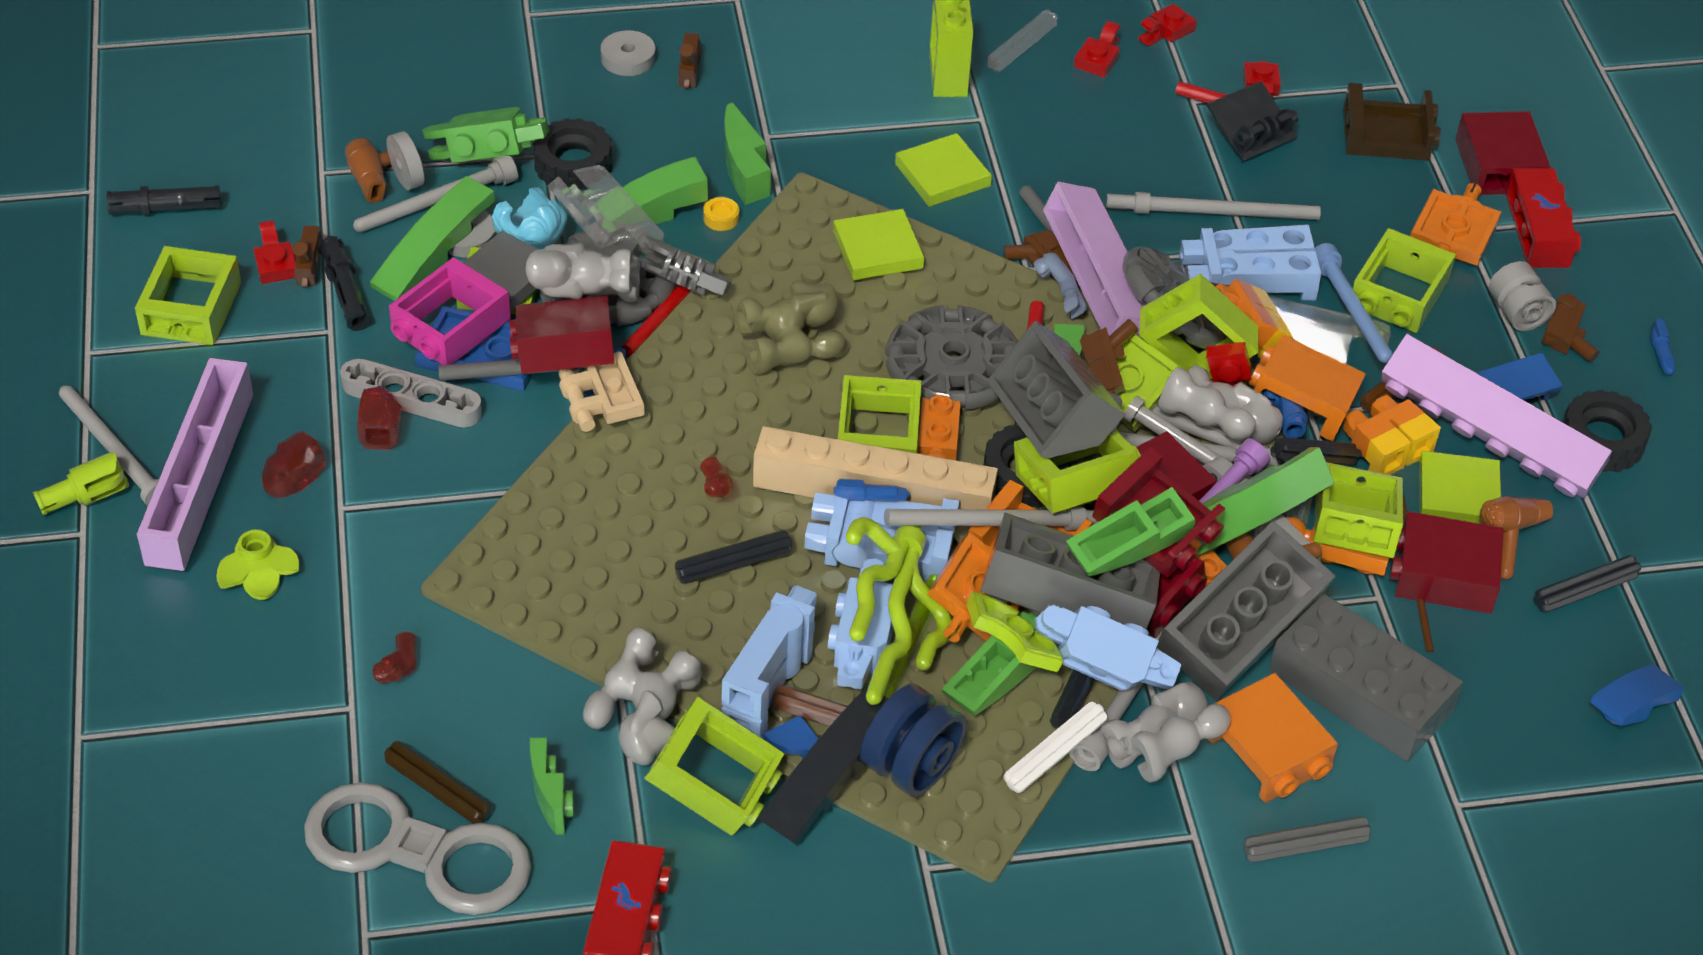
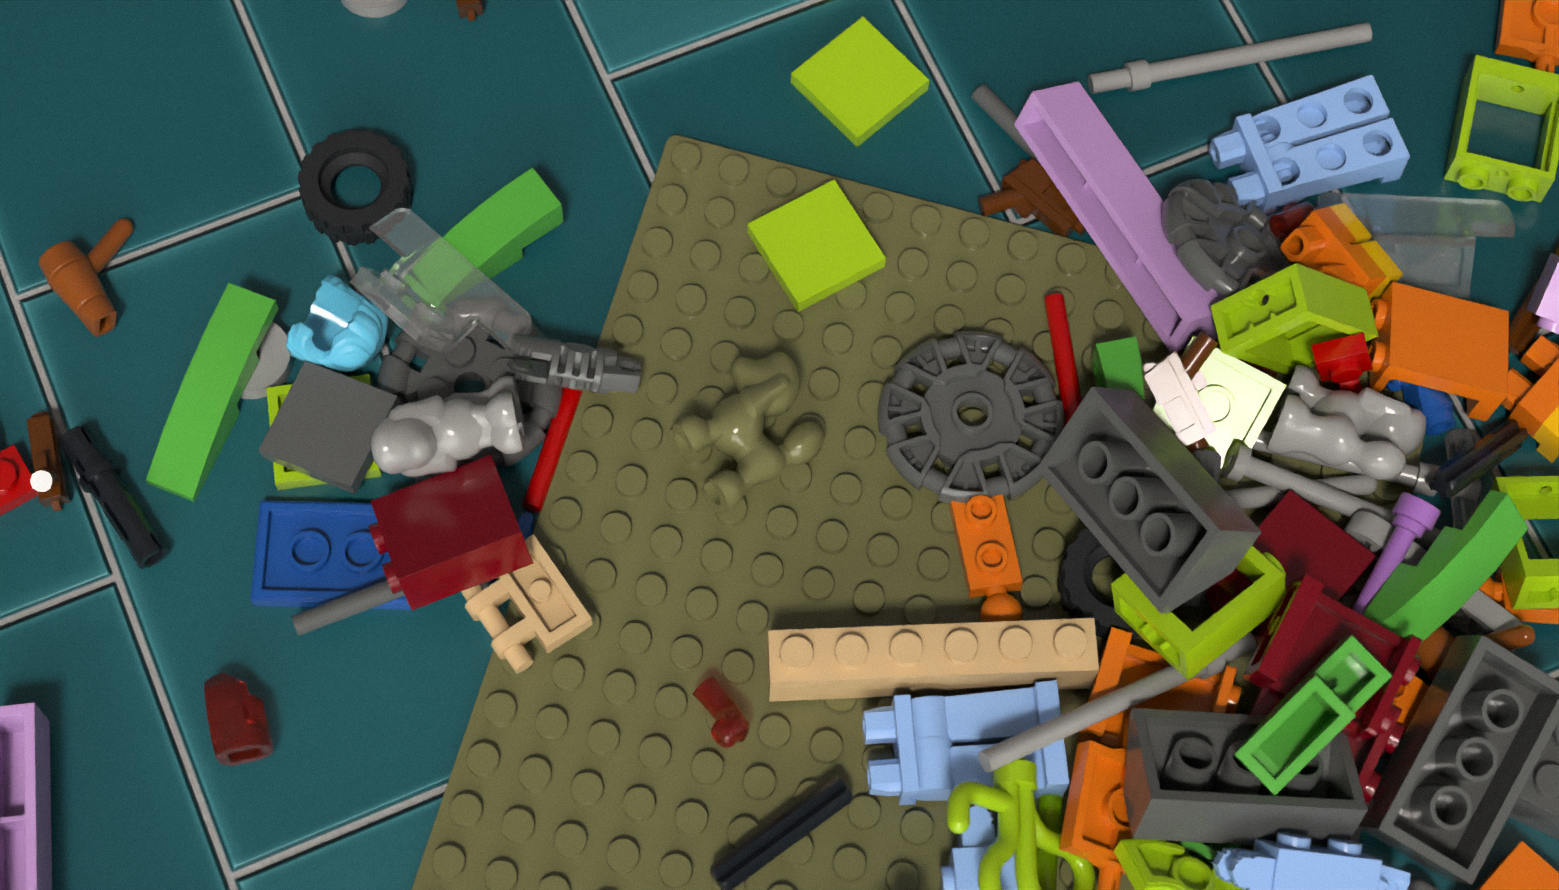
camera: 15 degrees left, 20 degrees up
(293, 465) = (143, 835): clear red rock -> none
(405, 160) = (131, 266): light grey piece -> none
(448, 281) = (295, 476): dark pink window -> none
(453, 406) = (265, 652): light grey beam -> none
(485, 135) = (228, 194): bright green hinge -> none
(500, 171) = (265, 241): light grey piece -> none
(721, 214) = (586, 235): yellow tile -> none
(745, 157) = (591, 133): bright green slope -> none
(859, 491) = (928, 702): blue piece -> none
(896, 397) = (917, 509): lime window -> none
(1073, 300) = (1057, 225): sand blue arm -> none
(1330, 266) = (1409, 123): medium blue piece -> none

